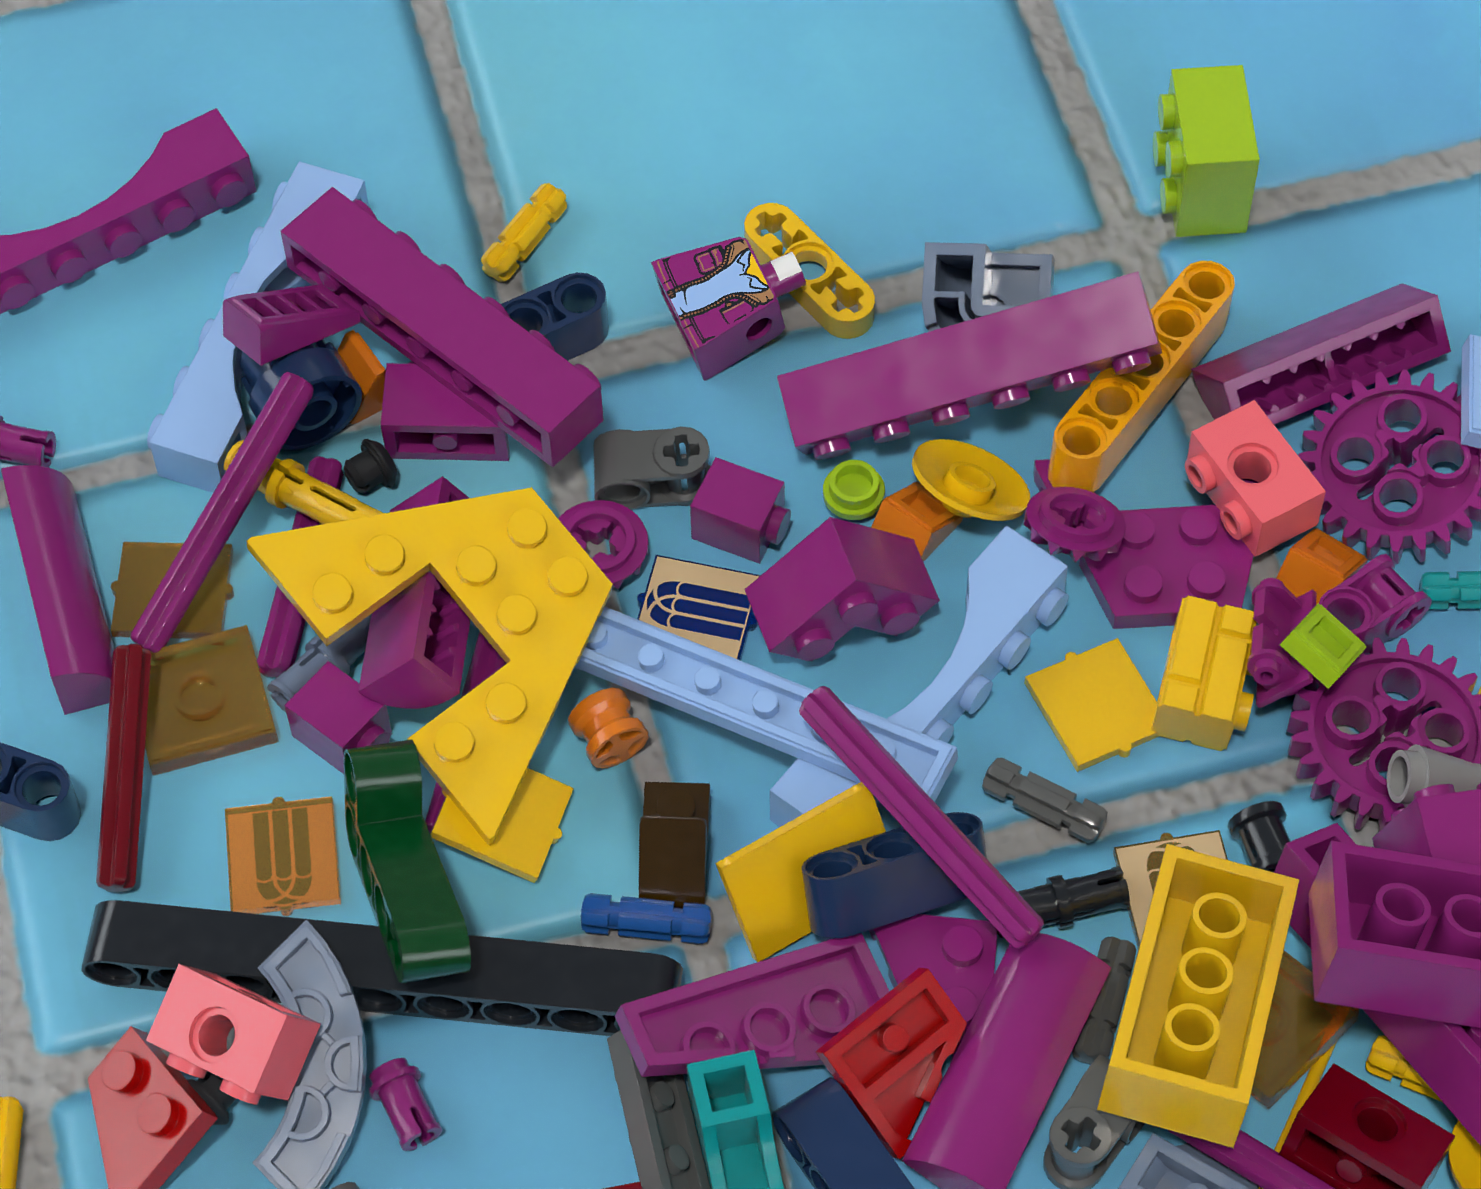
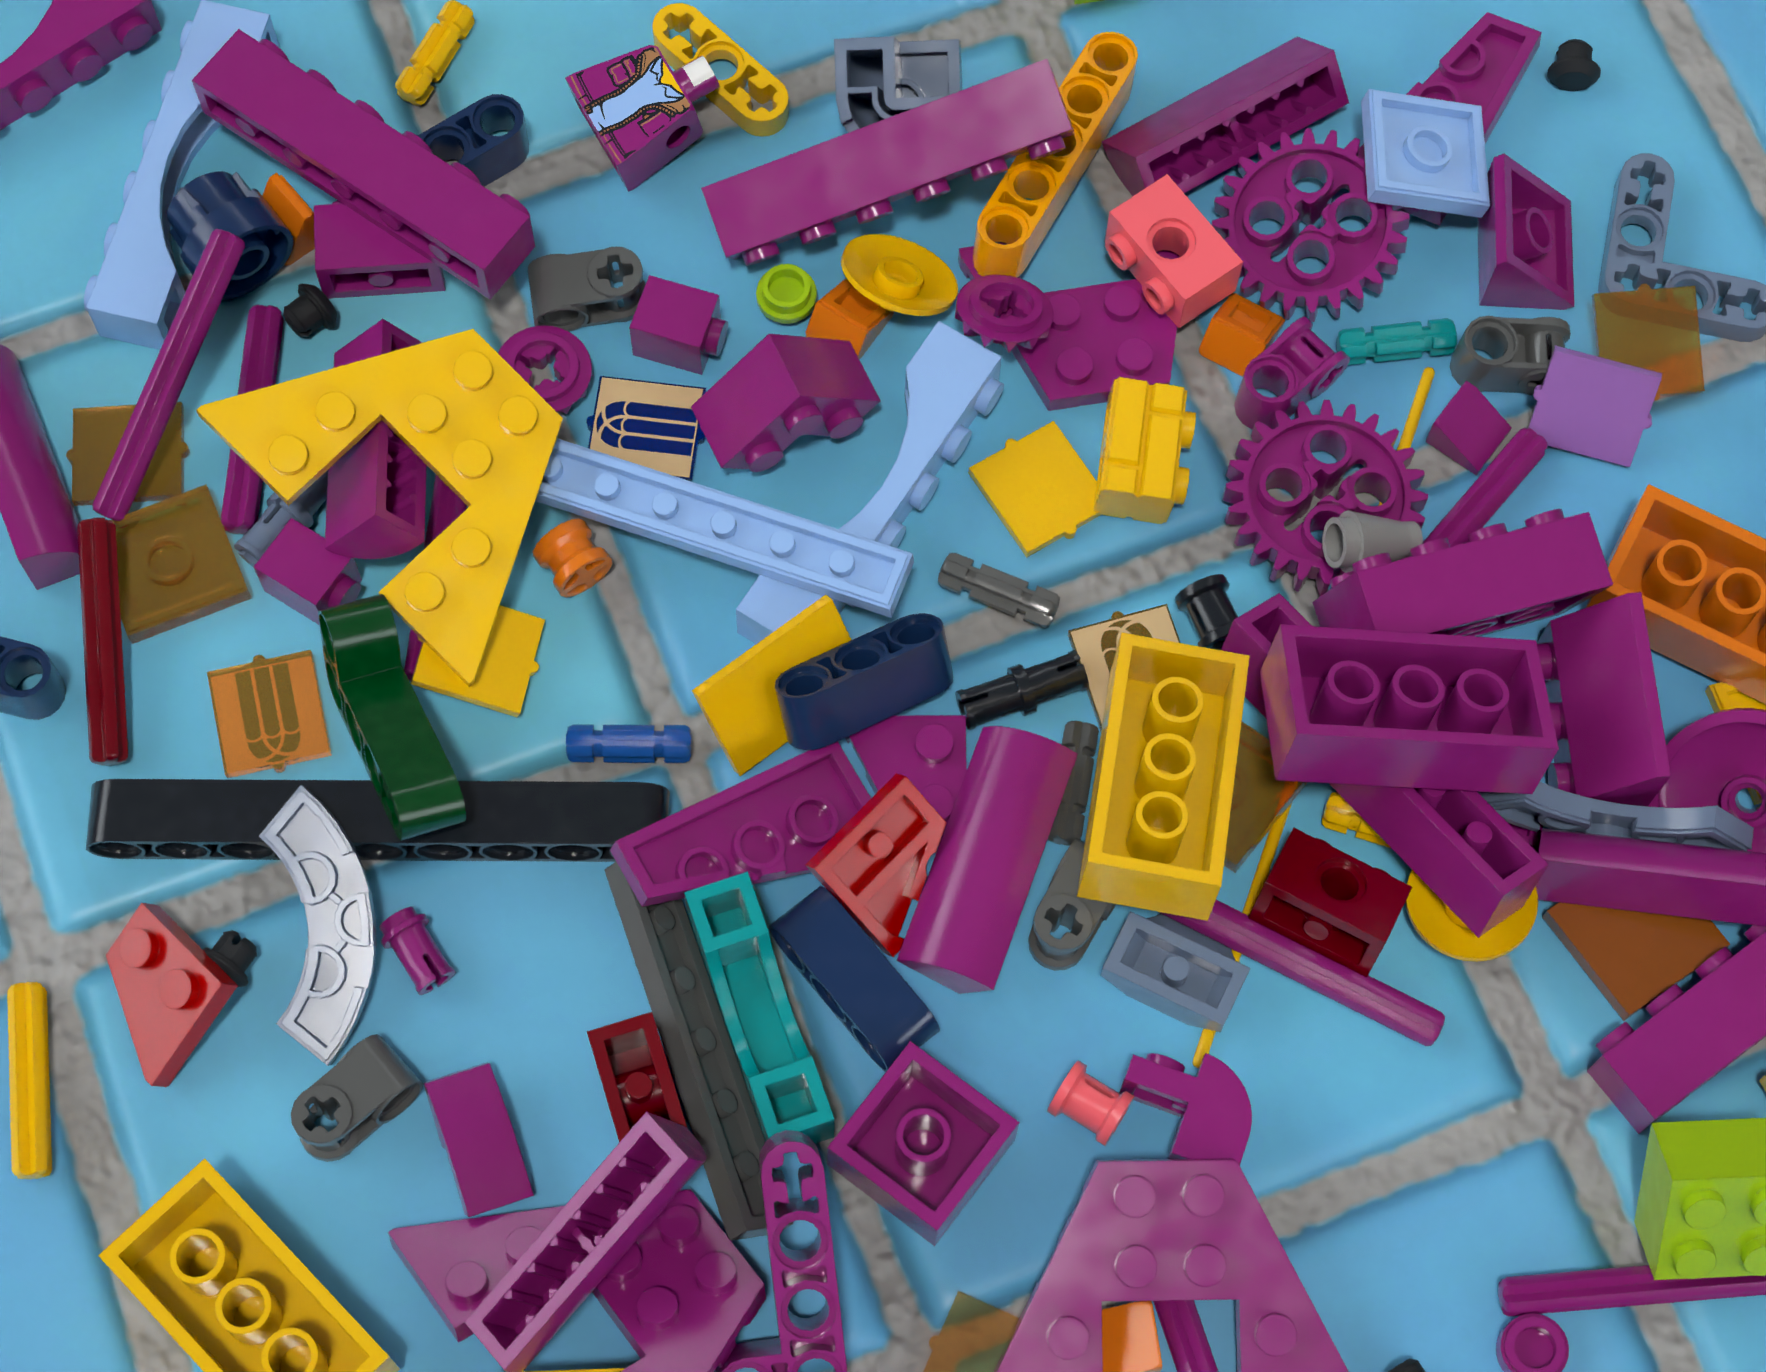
camera: 10 degrees left, 10 degrees up
(267, 1043) = (277, 905): coral brick -> none
(284, 320) = (196, 180): magenta slope -> none
(291, 487) = (233, 340): yellow pin -> none
(674, 842) = (648, 666): dark brown slope -> none
(921, 817) = (884, 626): magenta axle -> none
(1270, 664) = (1213, 414): magenta hinge -> none
(1323, 645) = (1252, 417): lime tile -> none

